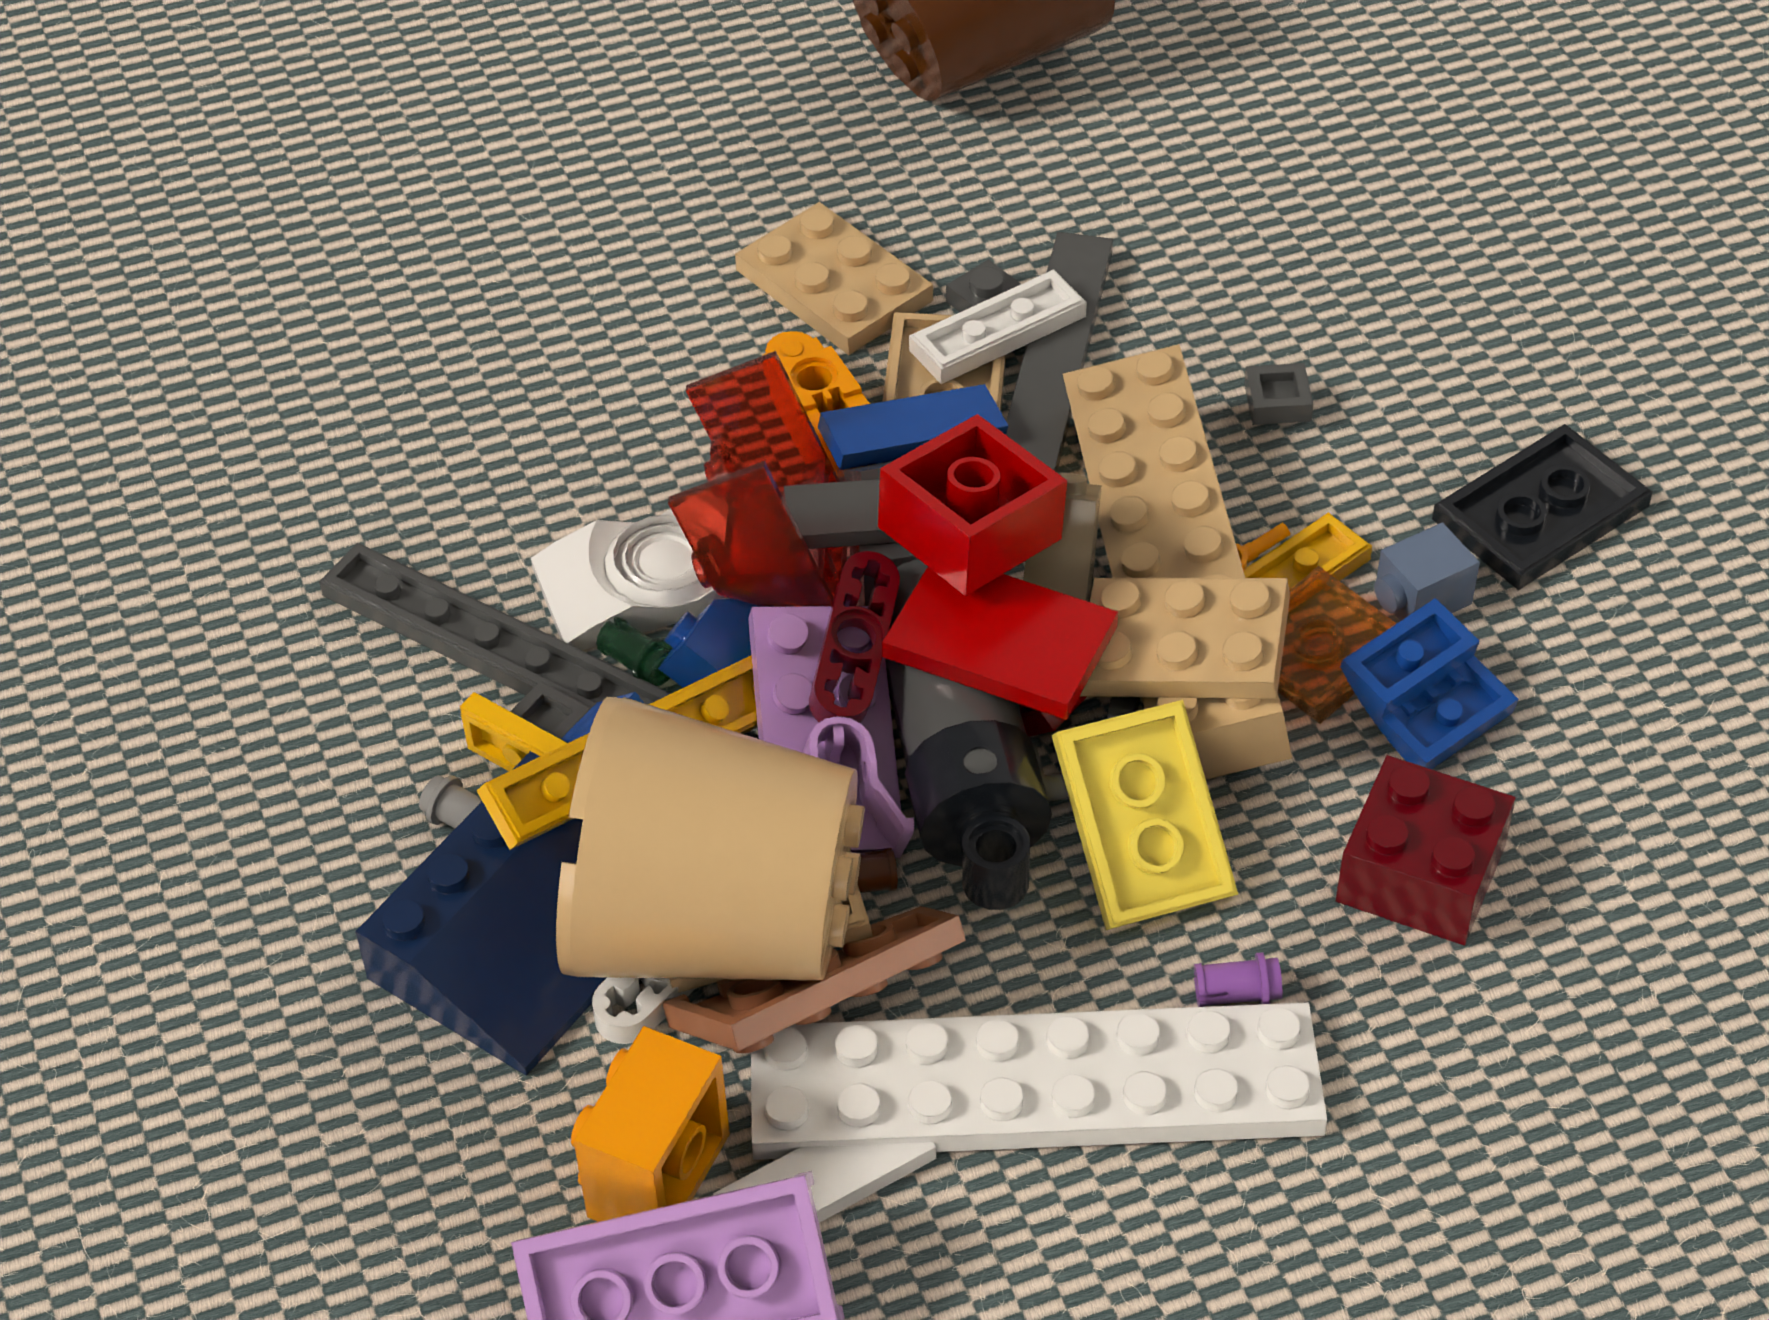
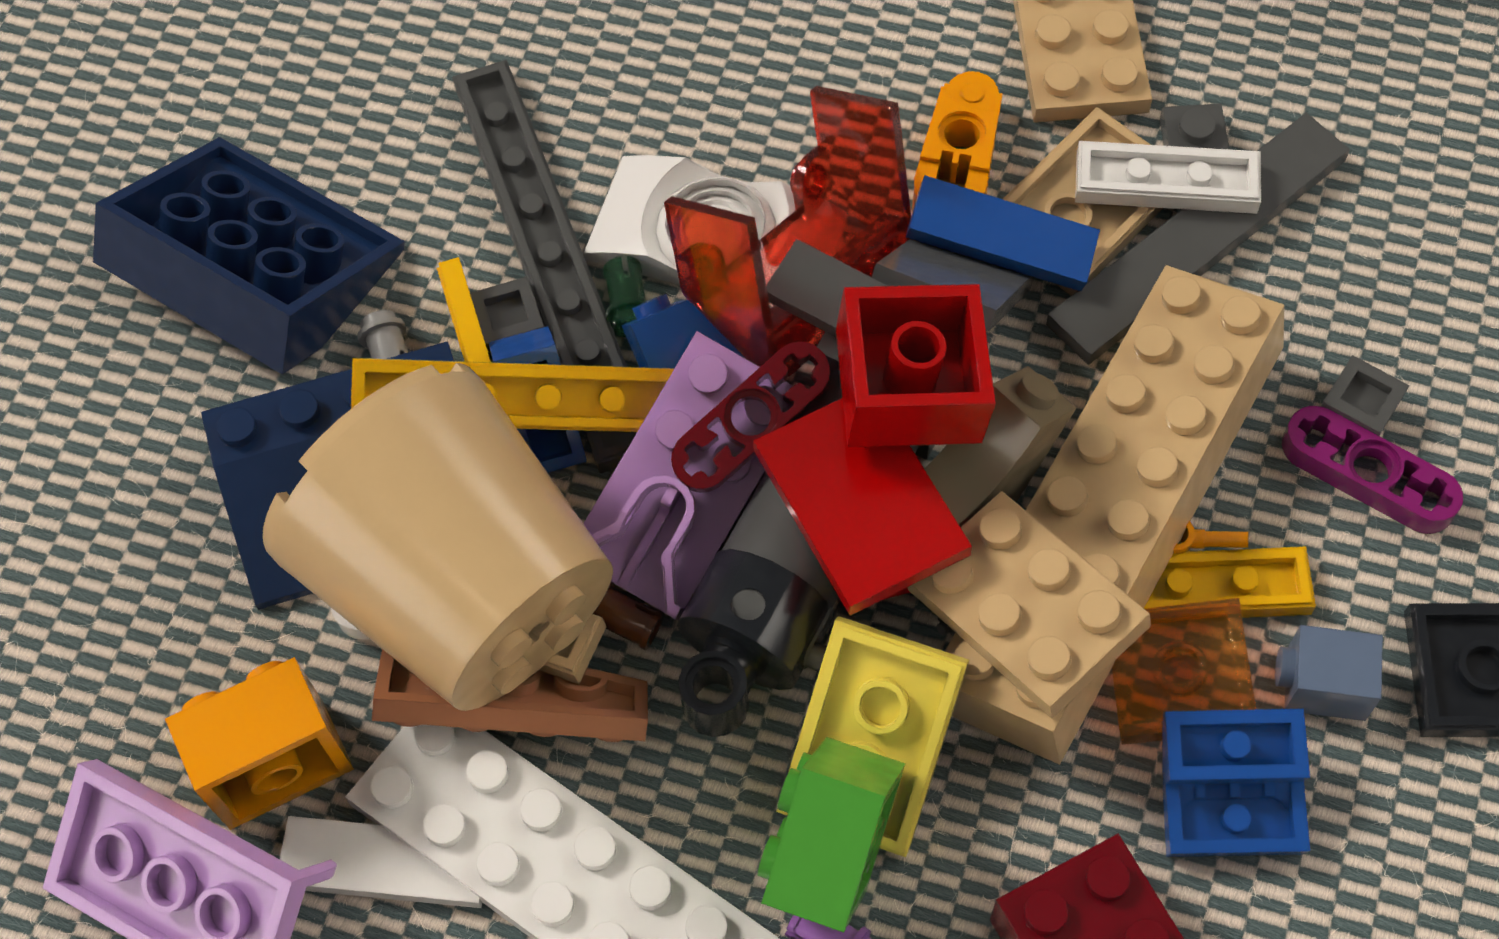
camera: 40 degrees right, 15 degrees up
(253, 815) = (243, 251): none -> dark blue slope
(1184, 881) = (831, 832): none -> bright green brick
(1367, 449) = (1379, 495): none -> magenta beam

